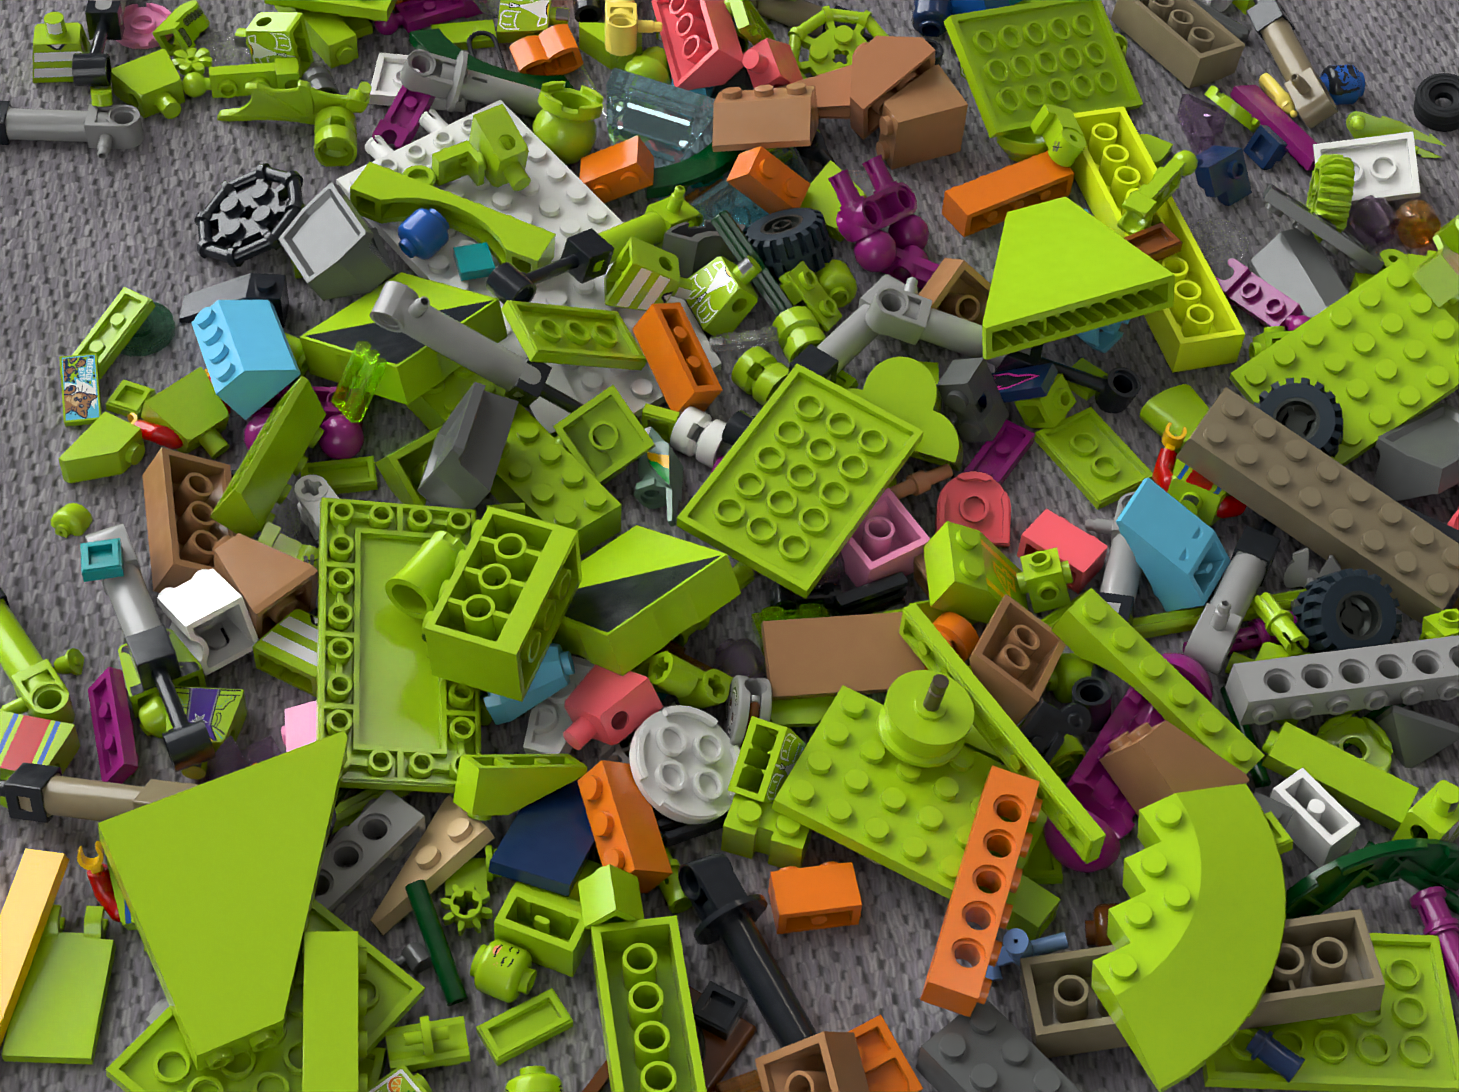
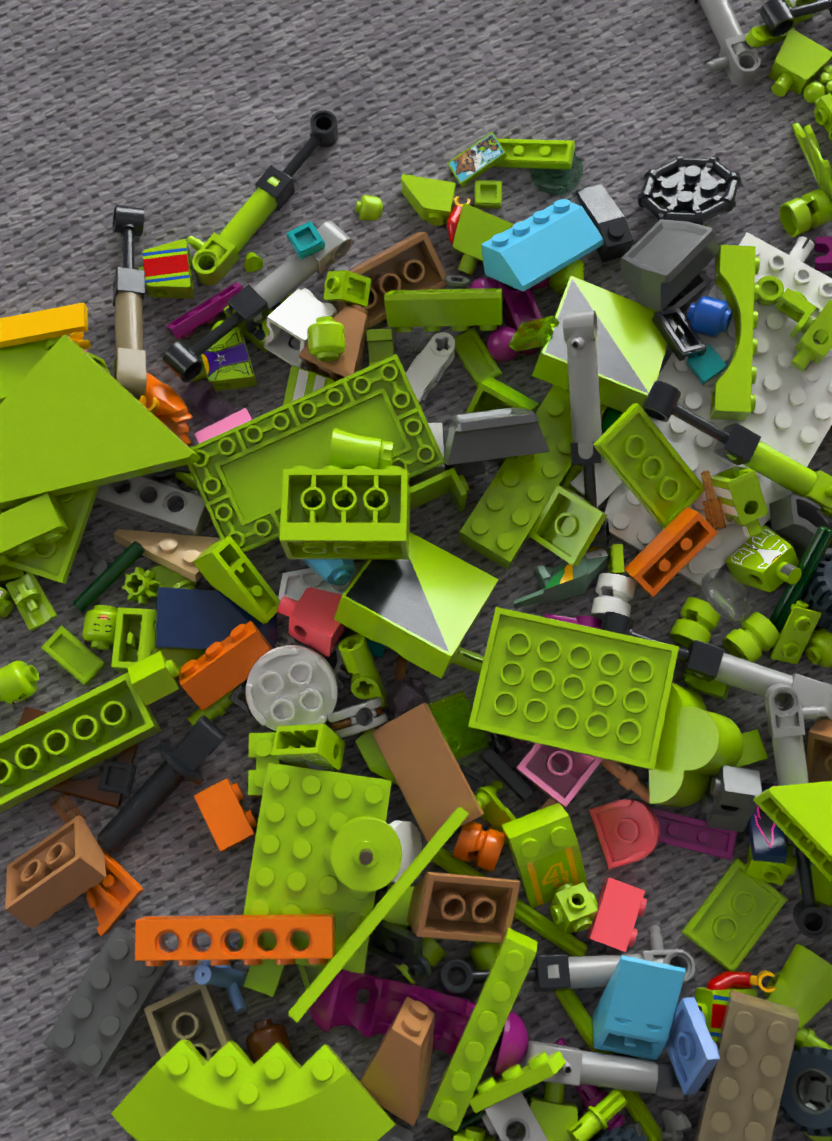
camera: 75 degrees right, 25 degrees up
(187, 544) = (347, 287): none -> lime bracket
(237, 452) = (456, 282): none -> dark grey bush
(257, 568) = (326, 339): none -> lime head
(428, 266) = (674, 334): none -> black tile
(636, 310) = (712, 506): none -> clear orange axle
(1224, 661) = (516, 1080): none -> lime plate
(1228, 500) = (691, 1046): none -> medium blue plate

